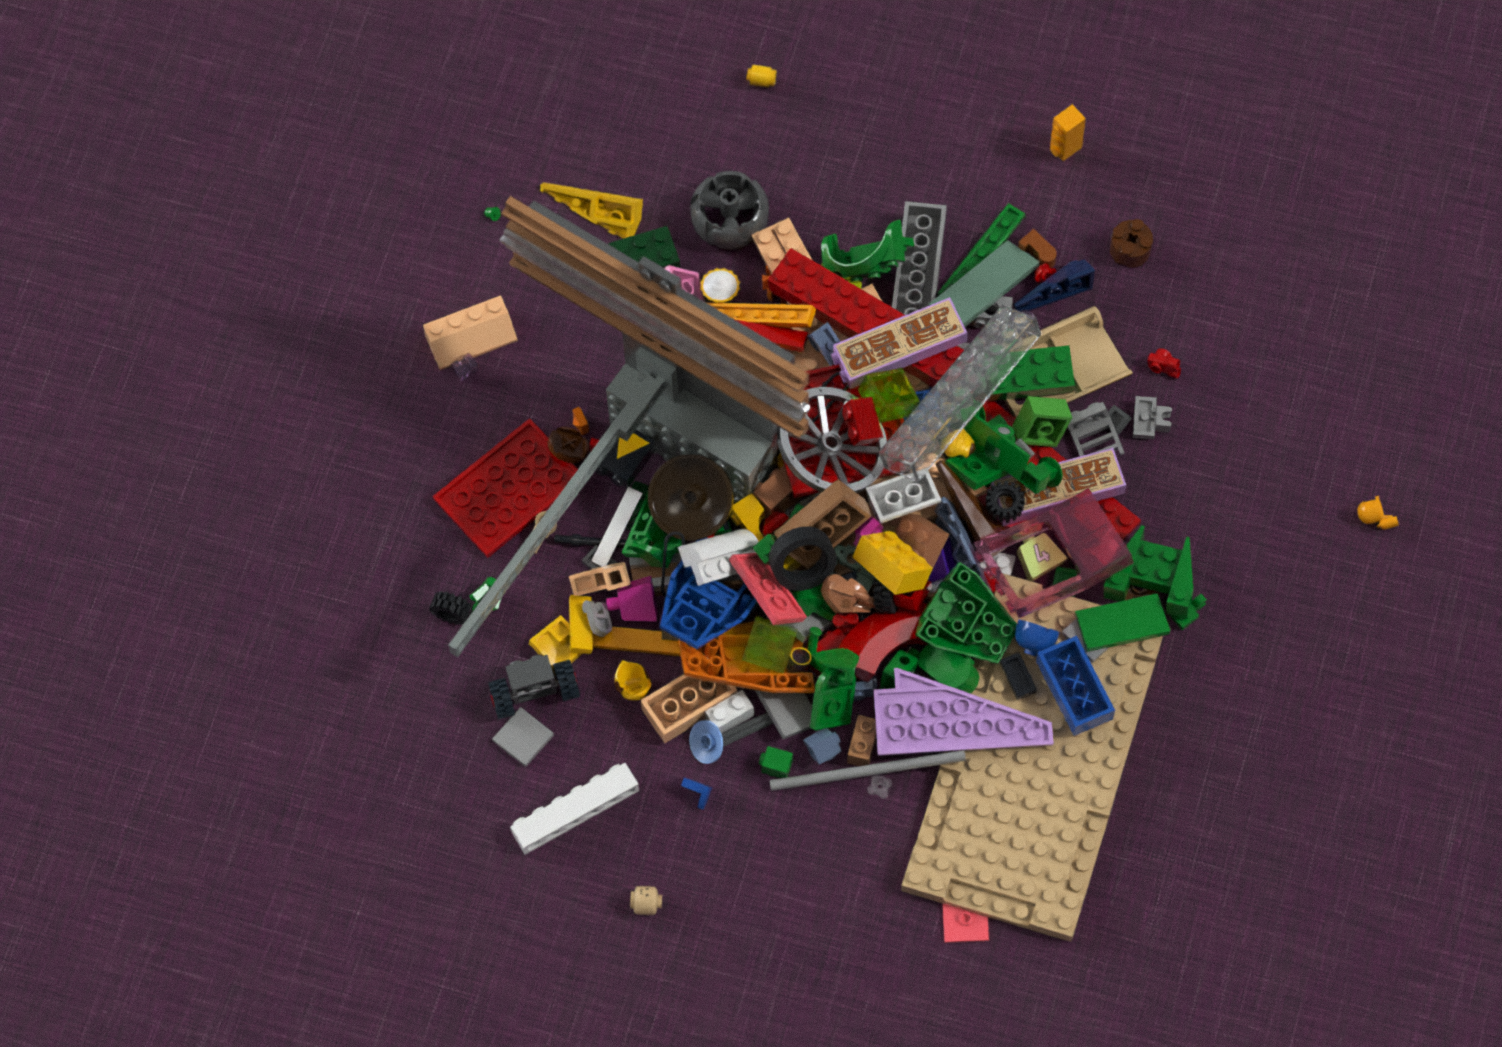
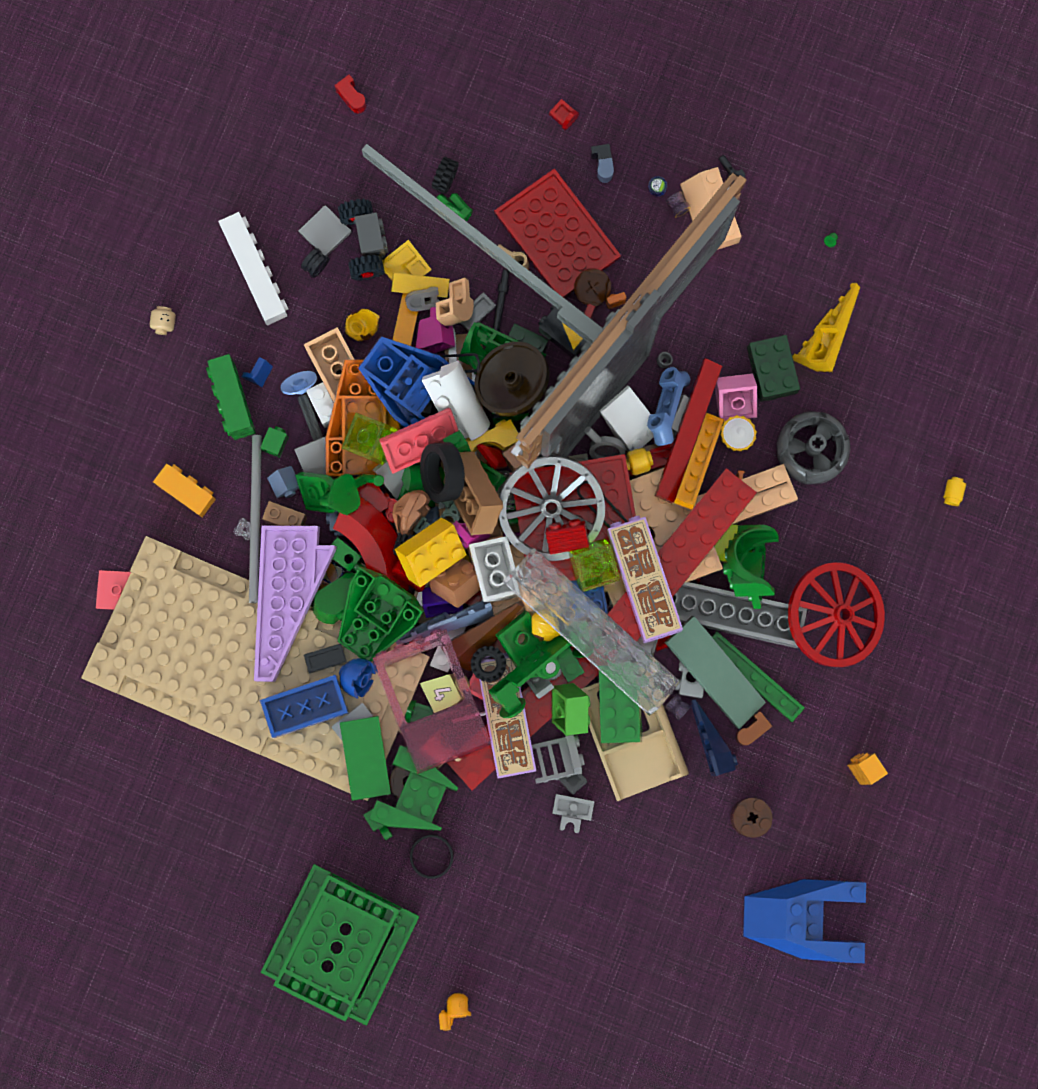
camera: 90 degrees right, 15 degrees up
(358, 723) = (350, 96): none -> red leg
(366, 494) = (564, 114): none -> red tile
(421, 446) = (604, 161): none -> leg
(424, 308) = (728, 167): none -> black bar
(444, 391) = (657, 186): none -> tile
(563, 739) = (315, 262): none -> black wheel
(616, 526) = (505, 321): white sticker -> none
(731, 810) = (231, 396): none -> green brick
(798, 660) = (360, 466): wheel -> none
(823, 341) = (661, 517): sand blue plate -> none
(842, 854) = (185, 489): none -> light orange brick
(907, 169) = (834, 614): none -> red wheel
(1043, 272) = (727, 732): red plate -> none
(1164, 362) = (627, 829): red plate -> none
(1219, 534) = (412, 863): none -> black tyre
(1229, 200) = (793, 919): none -> blue wedge
(1327, 595) = (315, 924): none -> green plate

